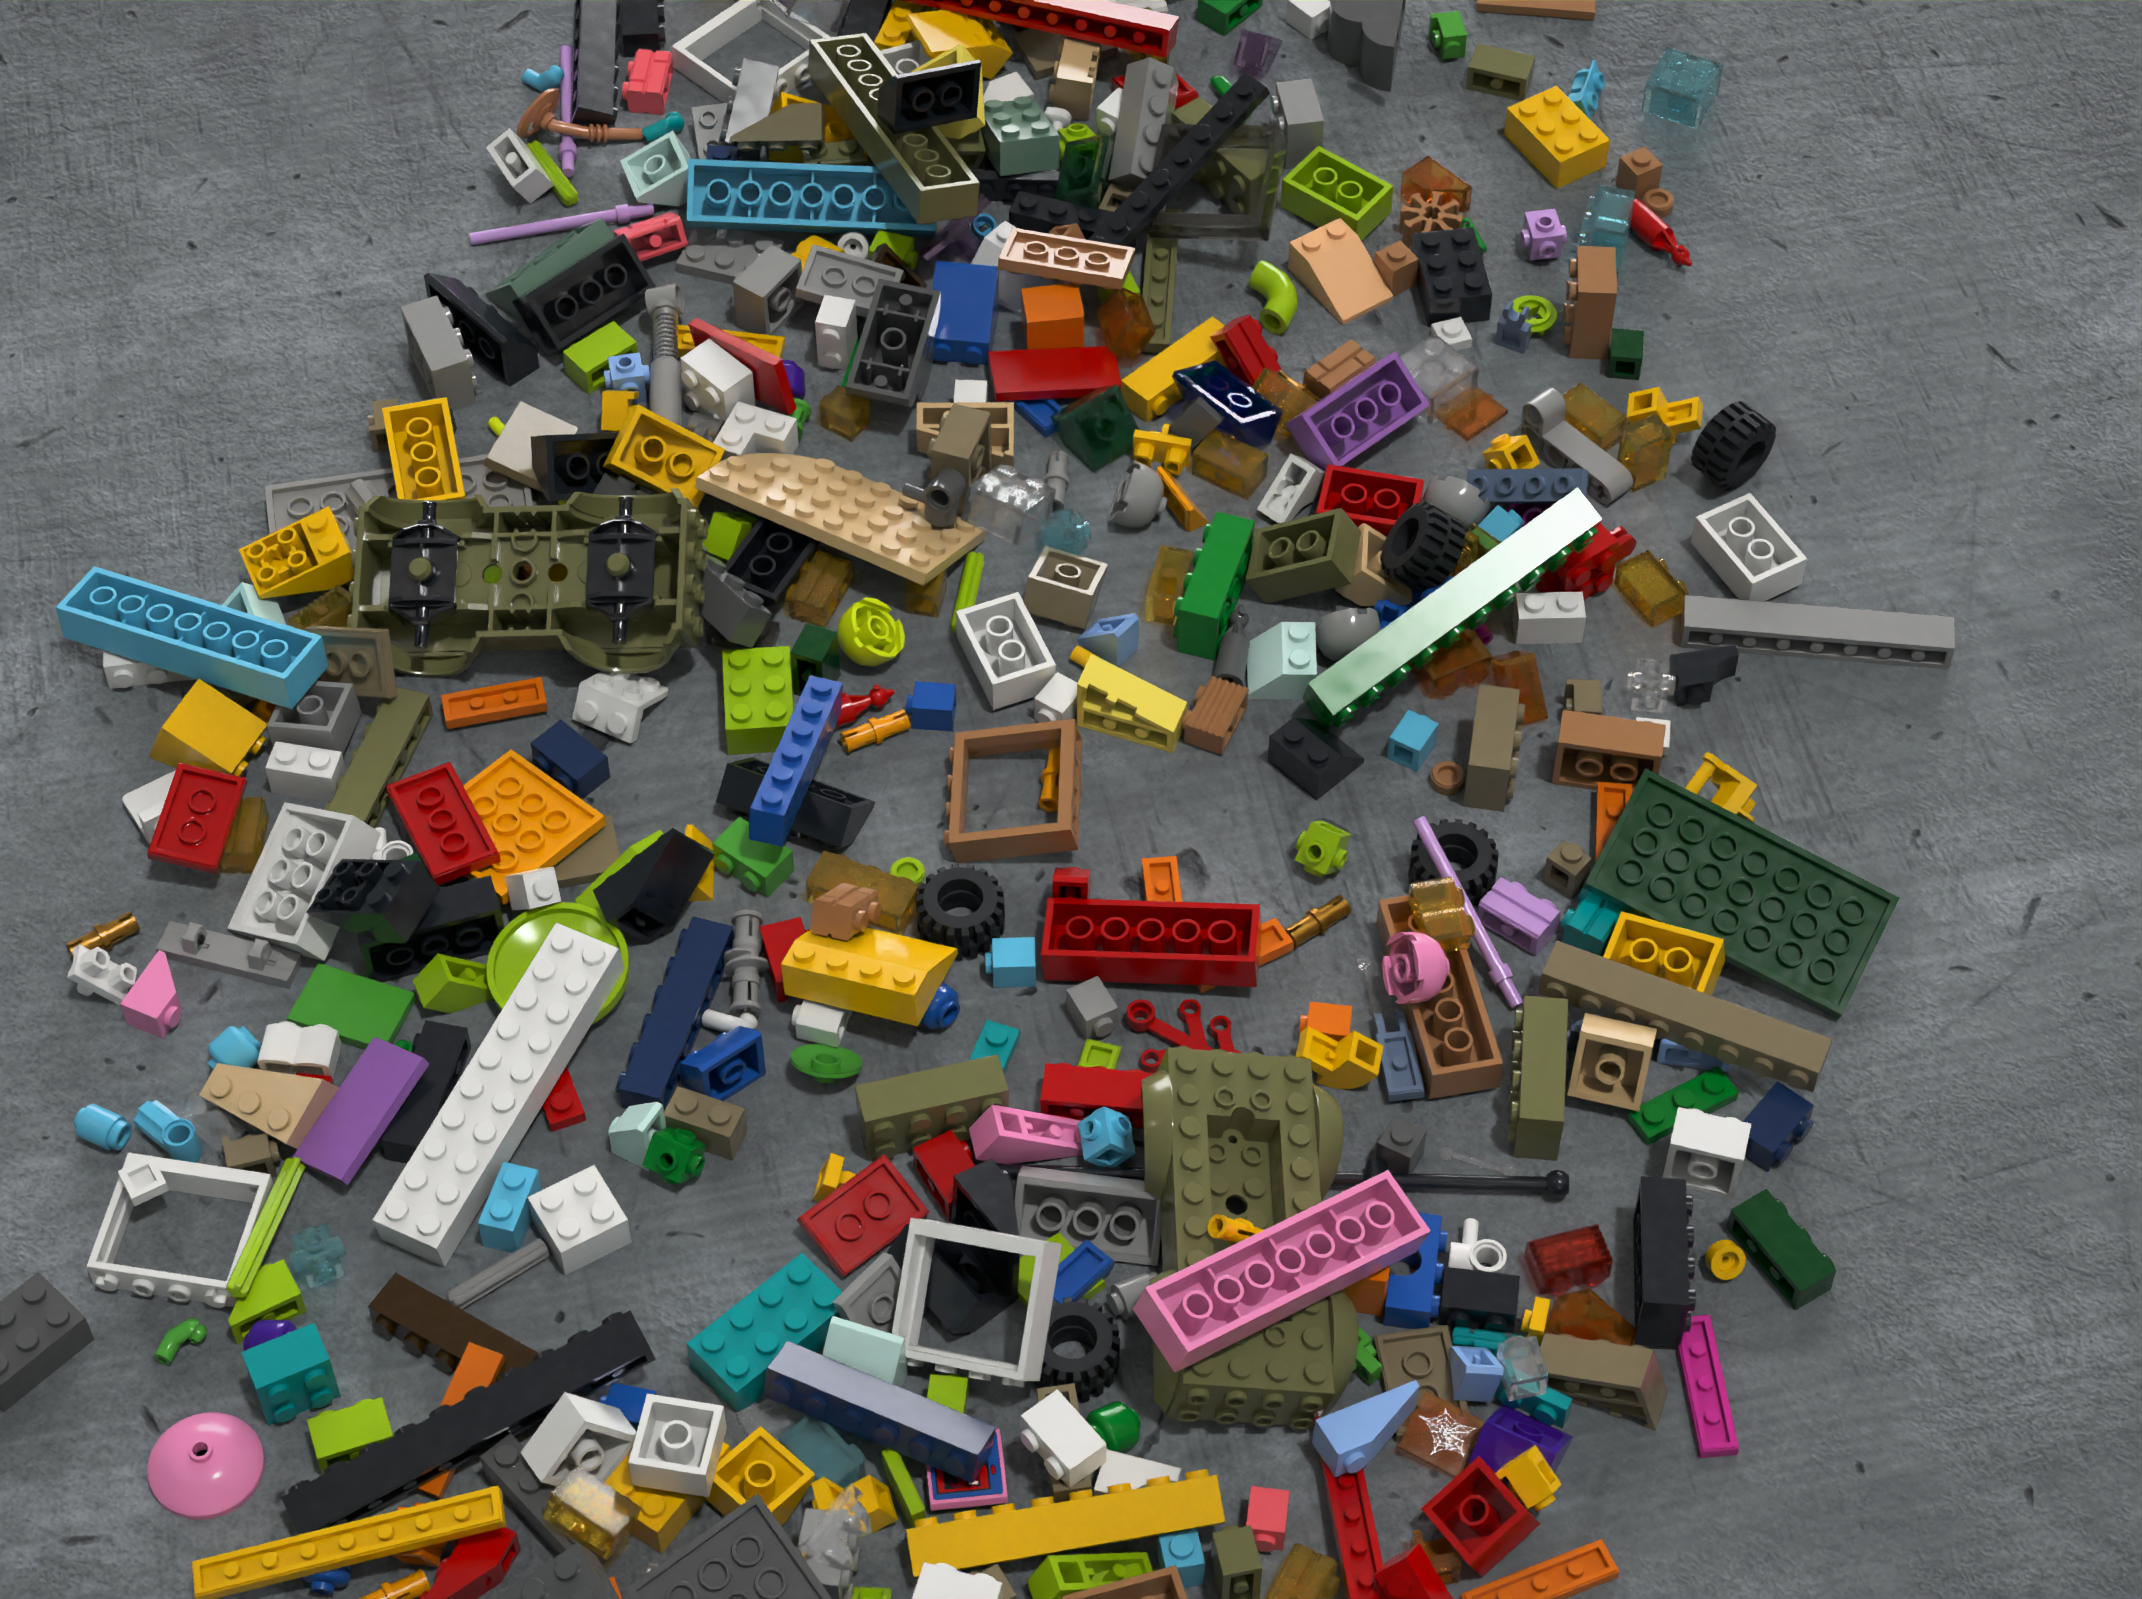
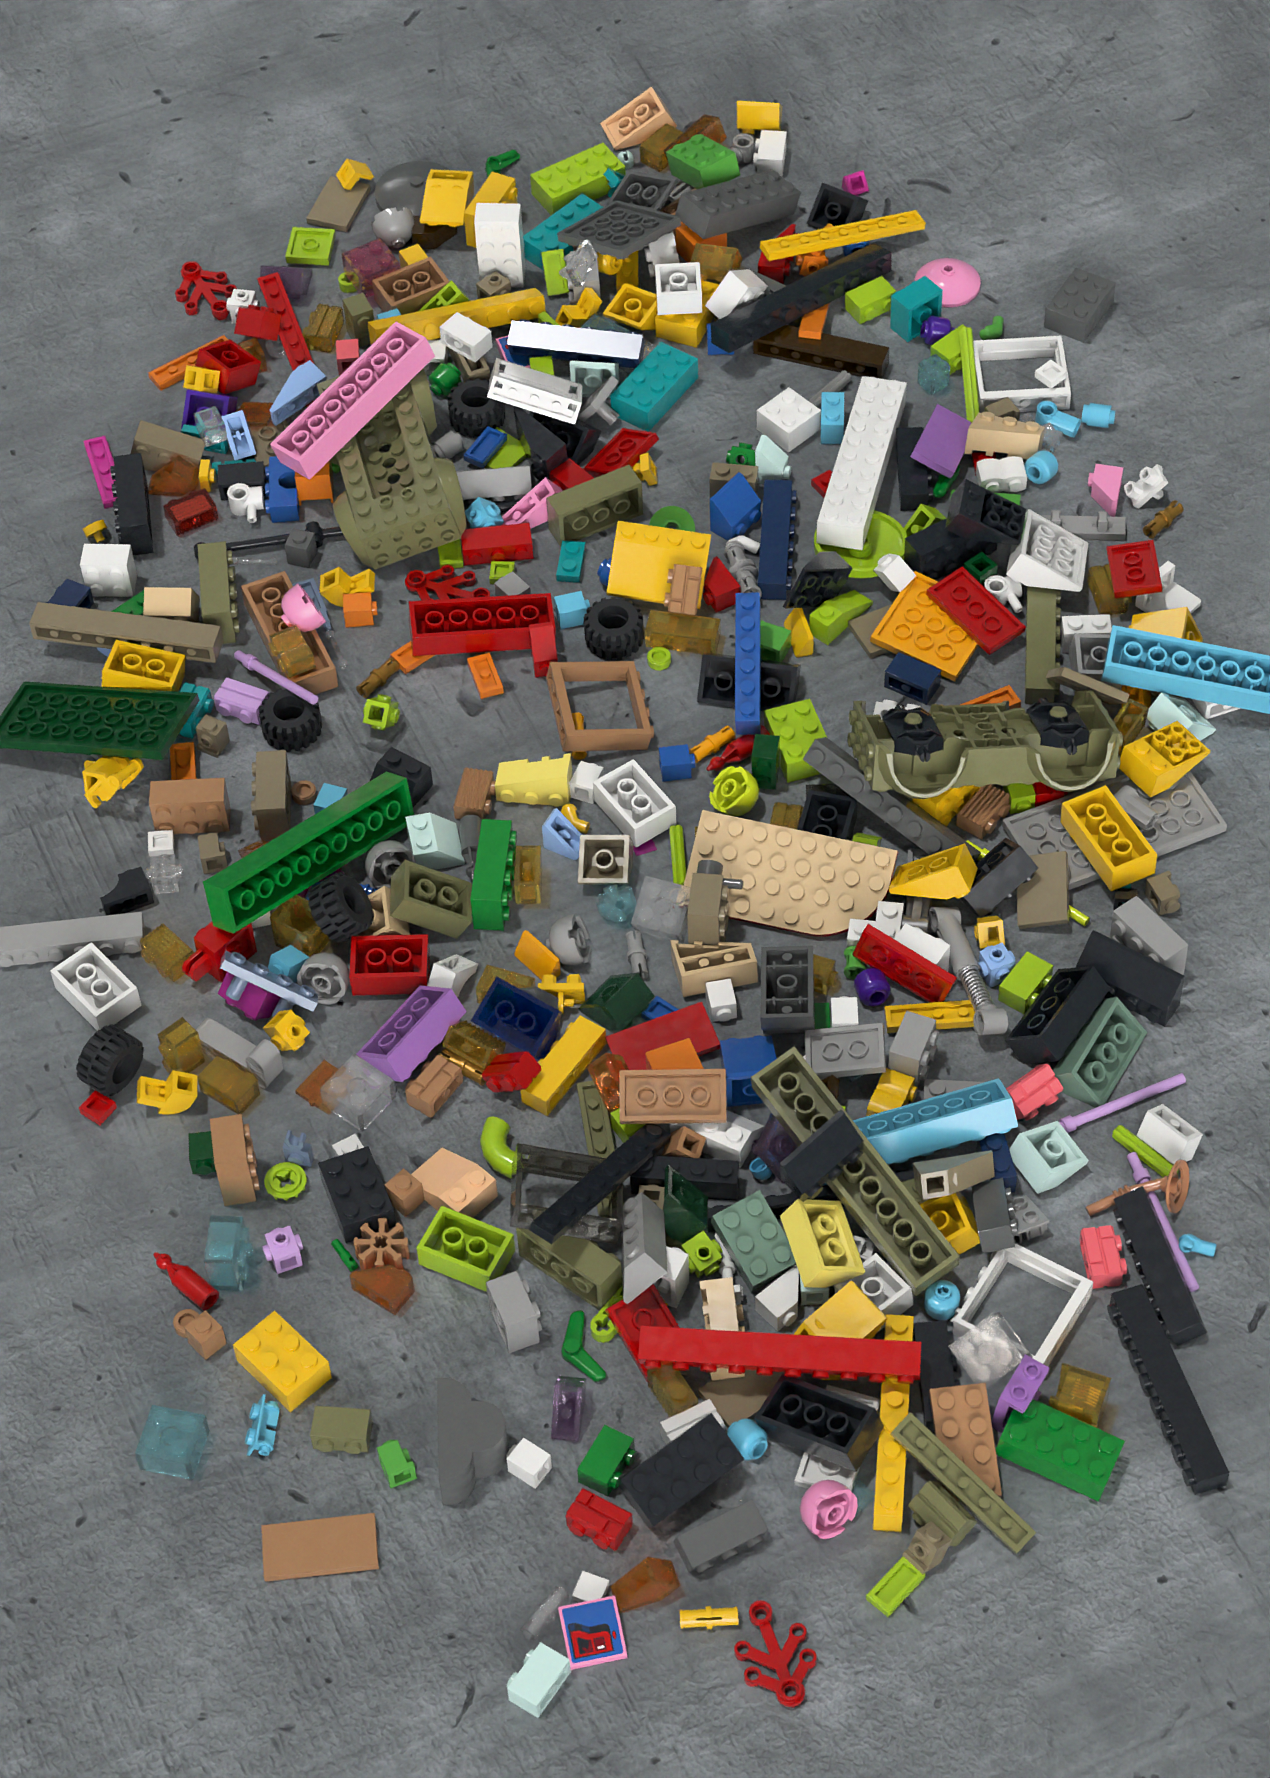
camera: 170 degrees right, 0 degrees up
(658, 129) = (1069, 1213): teal arm -> none
(1231, 1230) = (384, 437): yellow pin -> none
(1781, 1249) = (57, 539): dark green brick -> none

